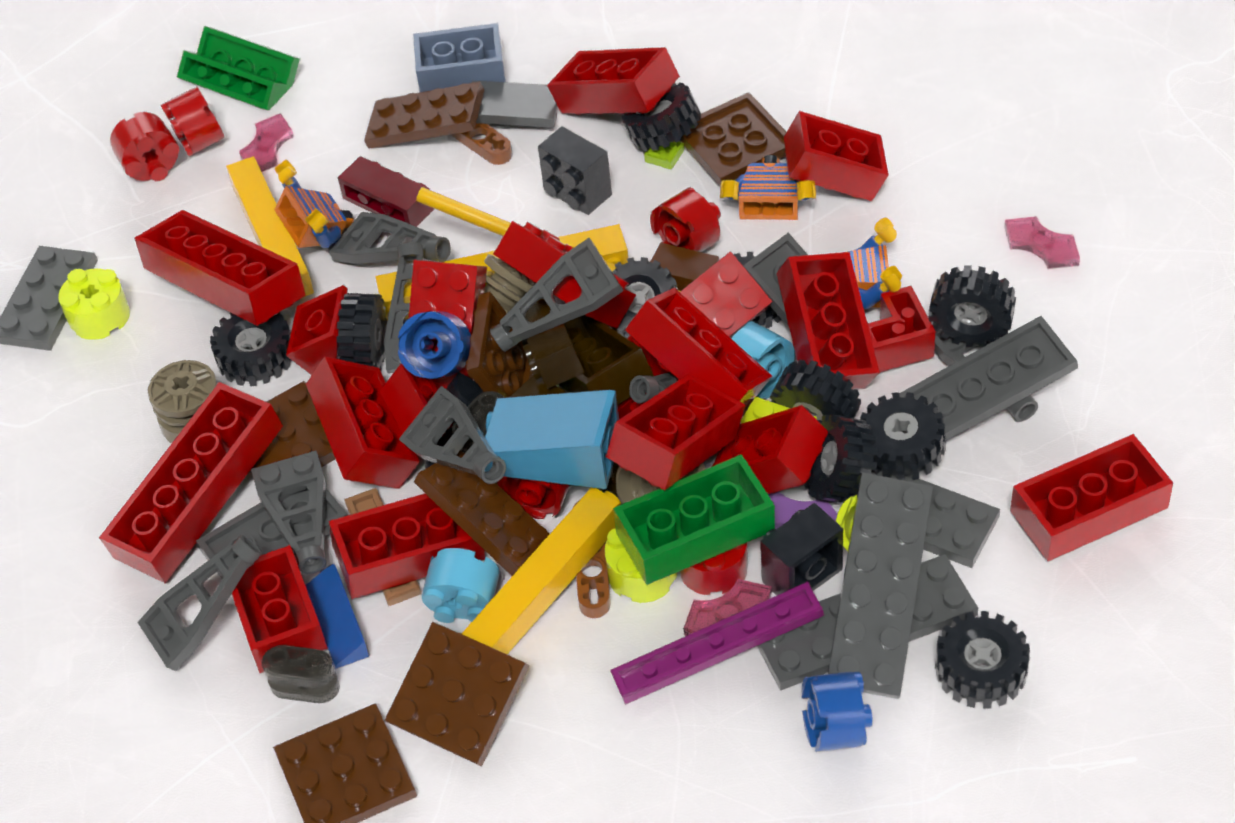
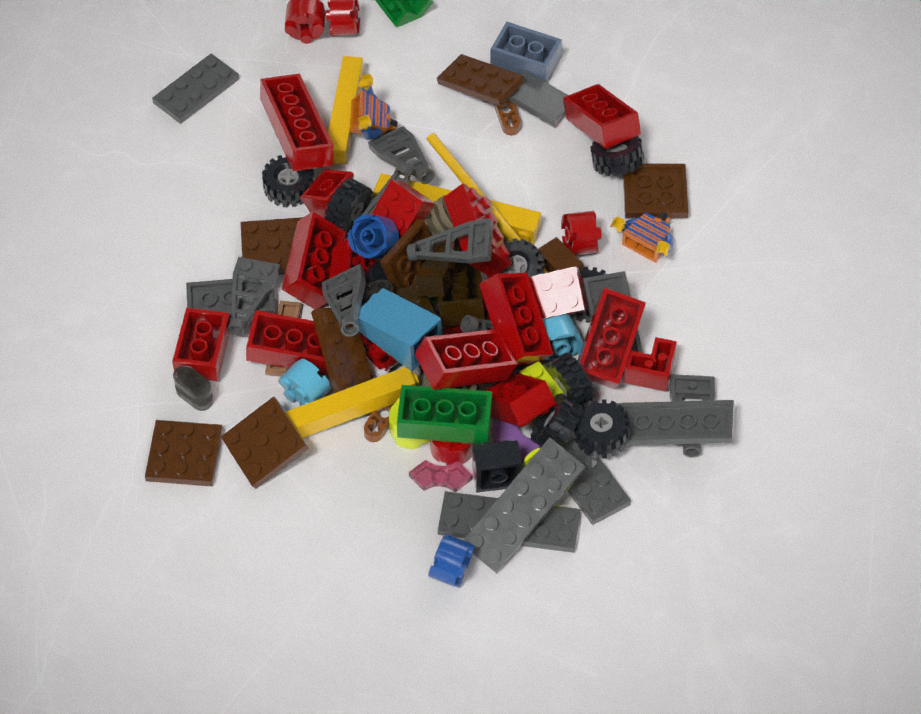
camera: 25 degrees right, 5 degrees up
(93, 302) = (218, 107): neon yellow brick -> none
(163, 624) = (141, 320): dark grey plate -> none
(178, 393) = (230, 198): dark tan wheel -> none
(191, 482) = (202, 247): red brick -> none
(268, 139) = (377, 52): clear pink tile -> none
(336, 618) = (232, 367): blue slope -> none
(383, 191) = (424, 118): dark red brick -> none
(575, 170) = (539, 164): black brick -> none
(665, 157) = (608, 182): lime tile -> none
(717, 642) = (419, 490): magenta tile -> none
(835, 156) = (698, 235): red brick -> none
(872, 266) = (665, 318): torso -> none
(972, 306) = (697, 373): black wheel -> none
(983, 642) = (554, 565): black wheel -> none
(1053, 248) = (791, 361): clear pink tile -> none
(1091, 497) = (683, 521): red brick -> none

